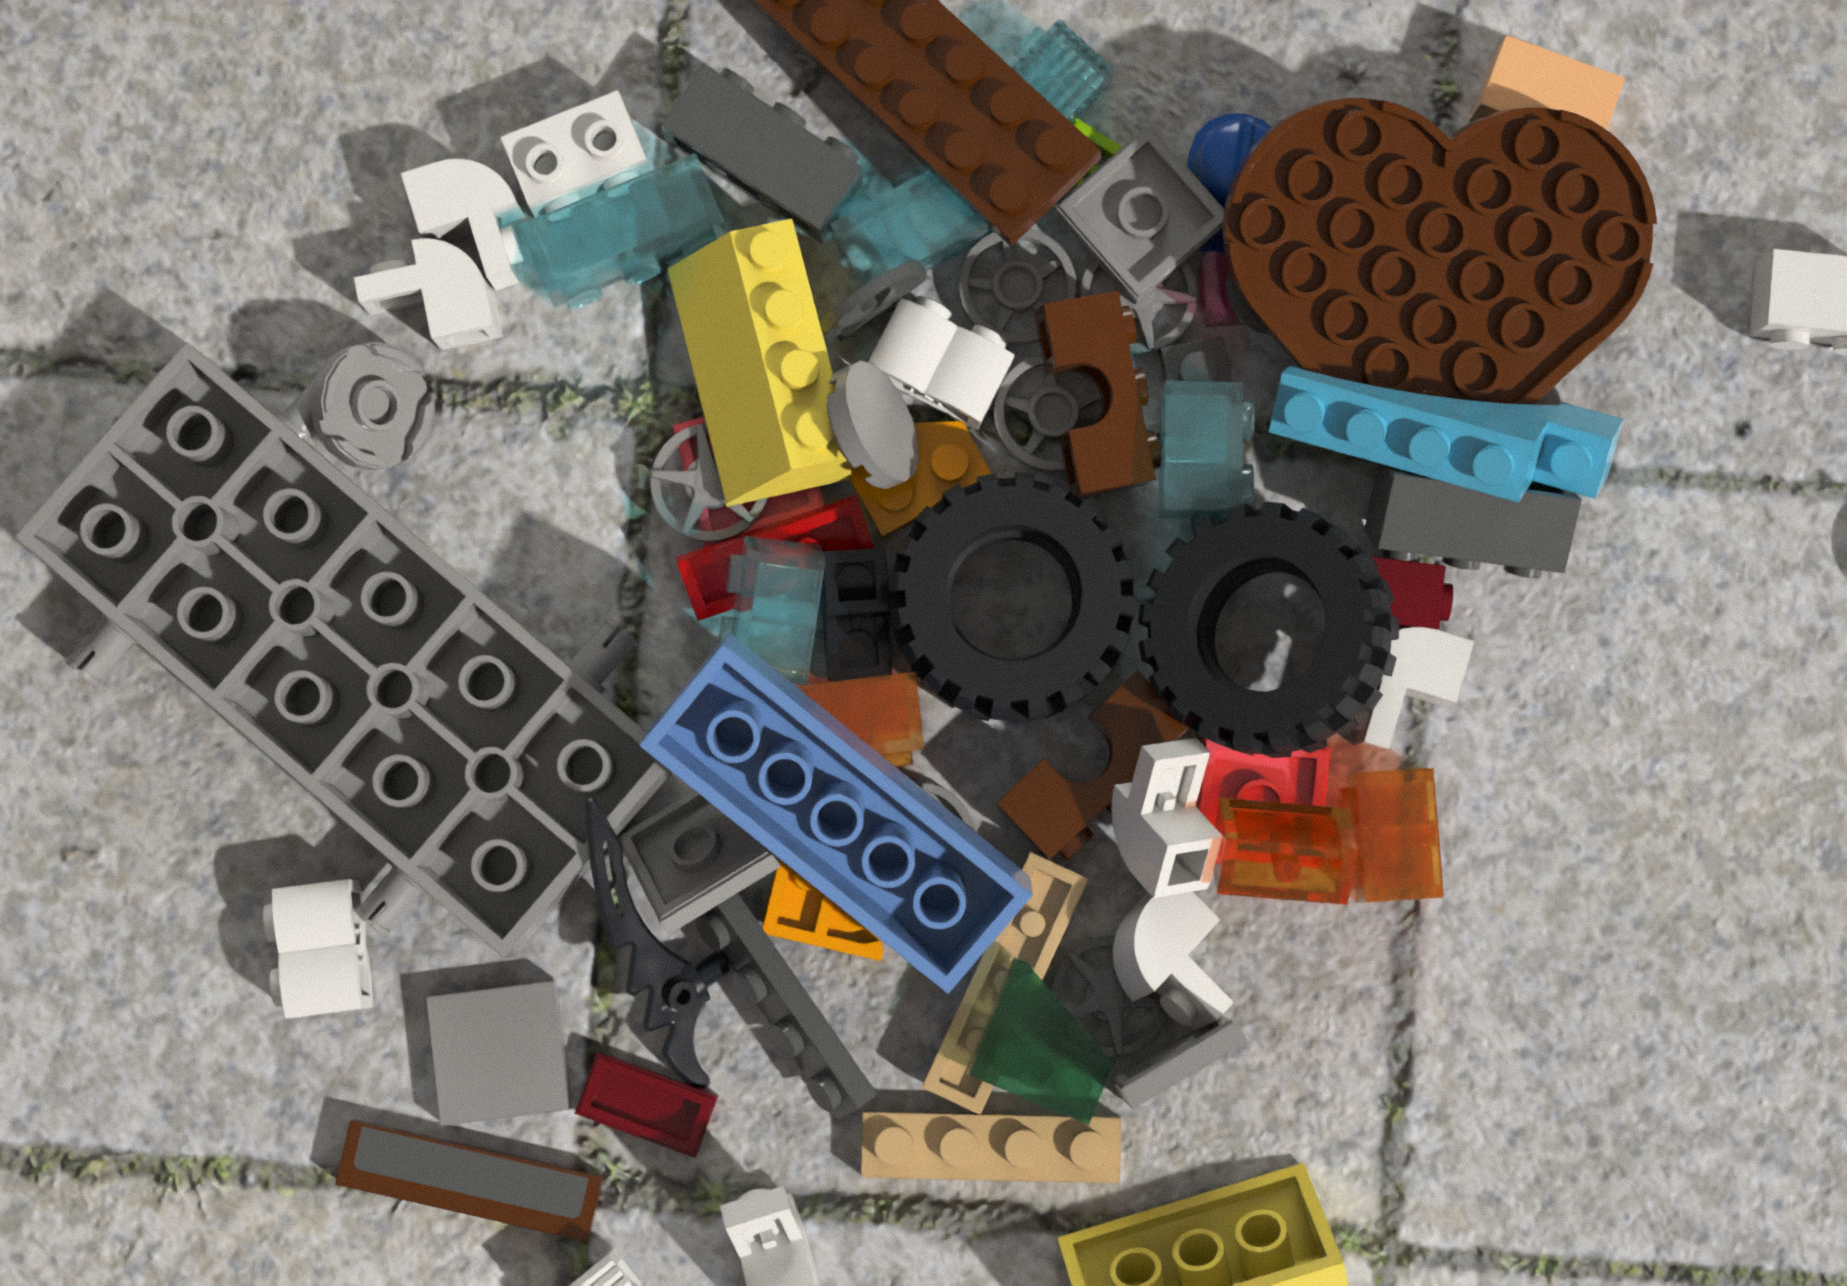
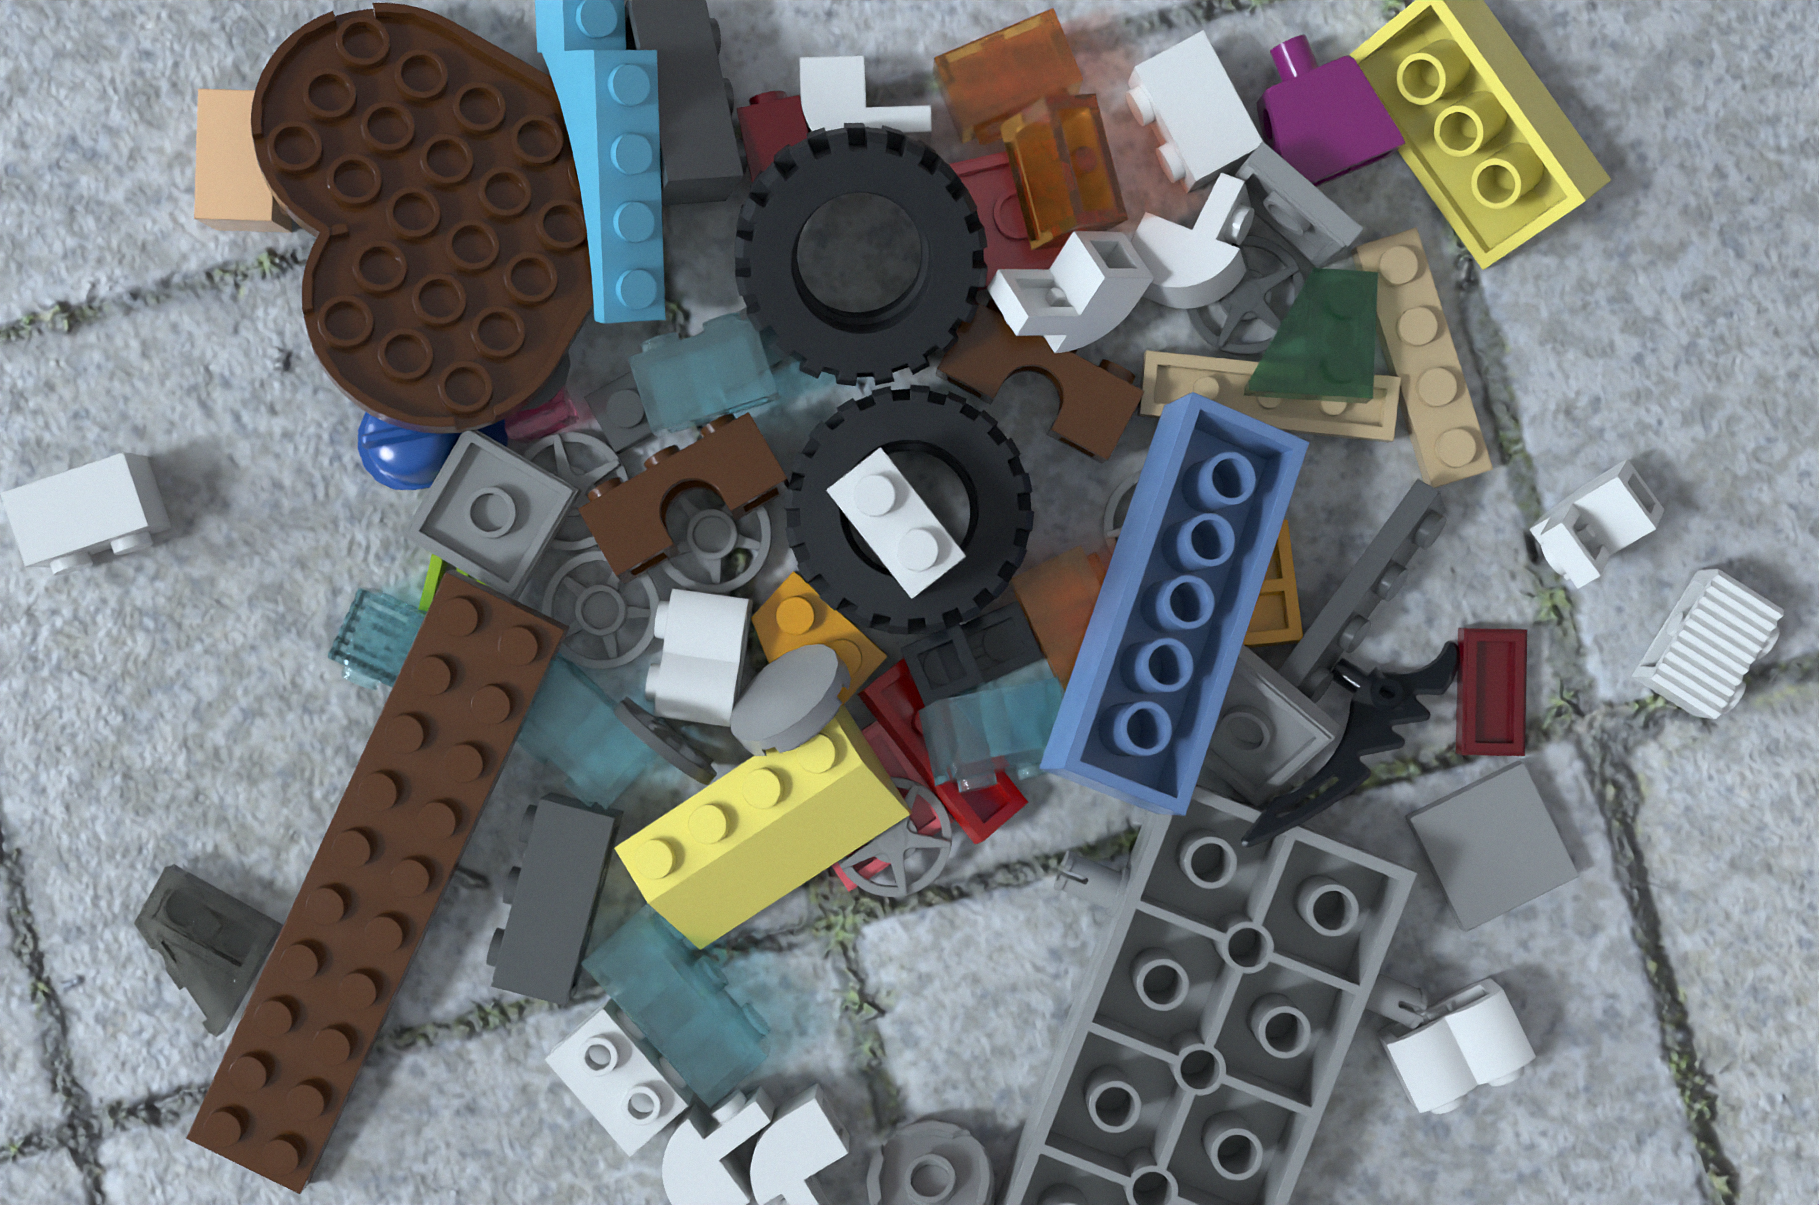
camera: 110 degrees left, 5 degrees up
(470, 1180) = (1617, 831): tile -> none
(1003, 570) = (896, 523): none -> white brick
(1254, 1124) = (1324, 116): none -> magenta torso
(1301, 1001) = (1192, 113): none -> white brick

